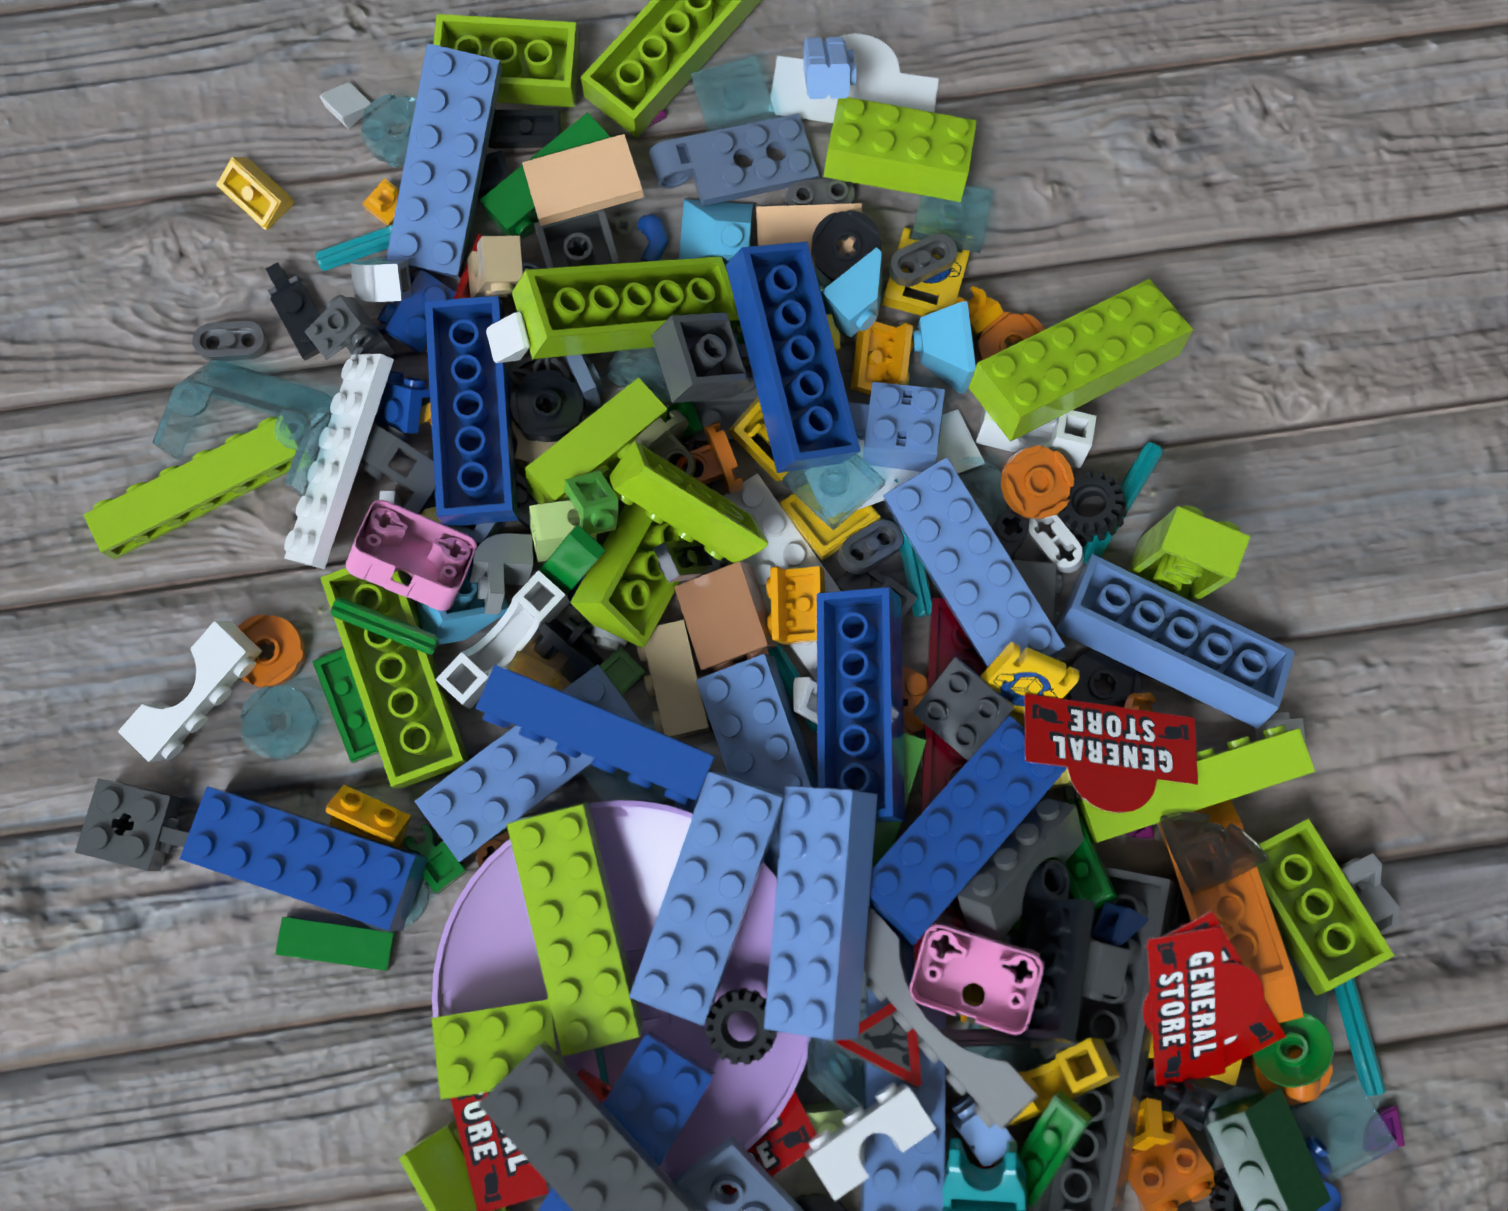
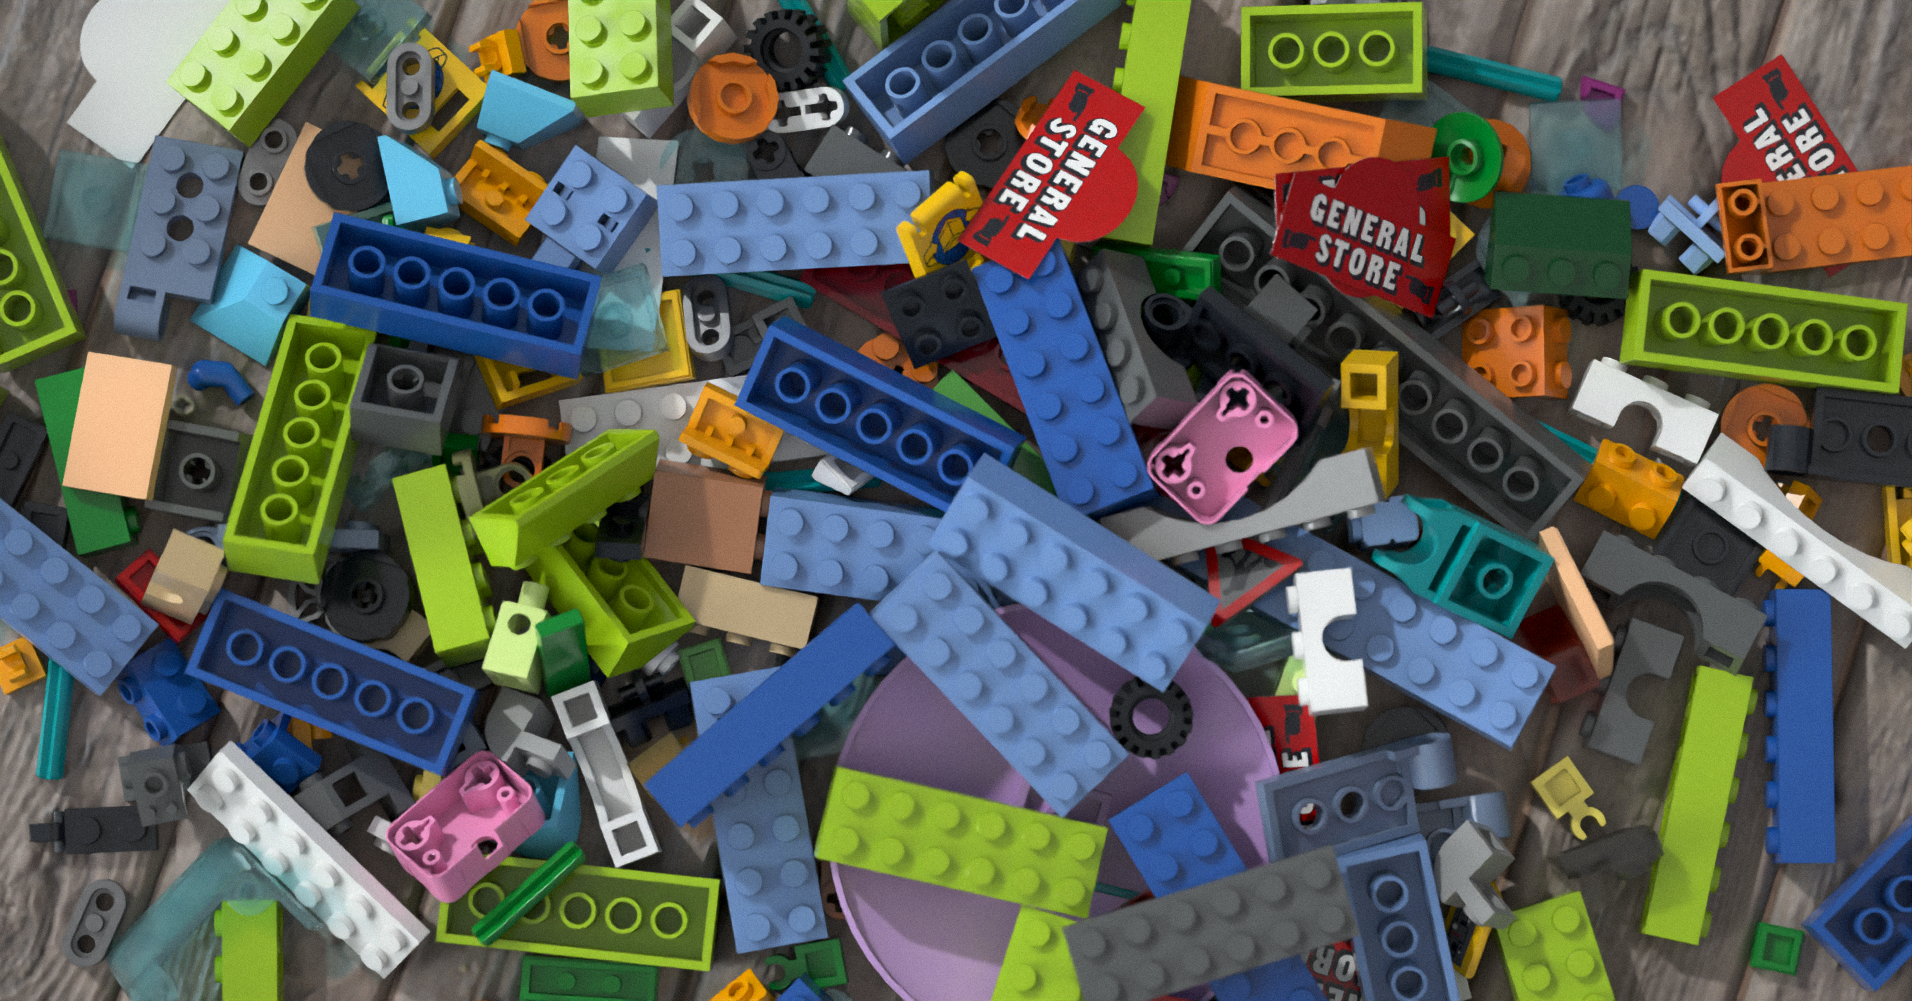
camera: 60 degrees left, 5 degrees up
(381, 280) = (121, 714): light grey brick -> none
(508, 338) = (280, 599): white slope -> none
(593, 501) = (512, 596): bright green bracket -> none
(828, 68) = (125, 76): light blue brick -> none
(1051, 1144) = (1429, 459): green tile -> none
(1117, 924) = (1244, 271): dark blue slope -> none
(1150, 1125) = (1468, 346): light orange tile -> none
(1208, 851) = (1220, 134): clear smoke brick -> none

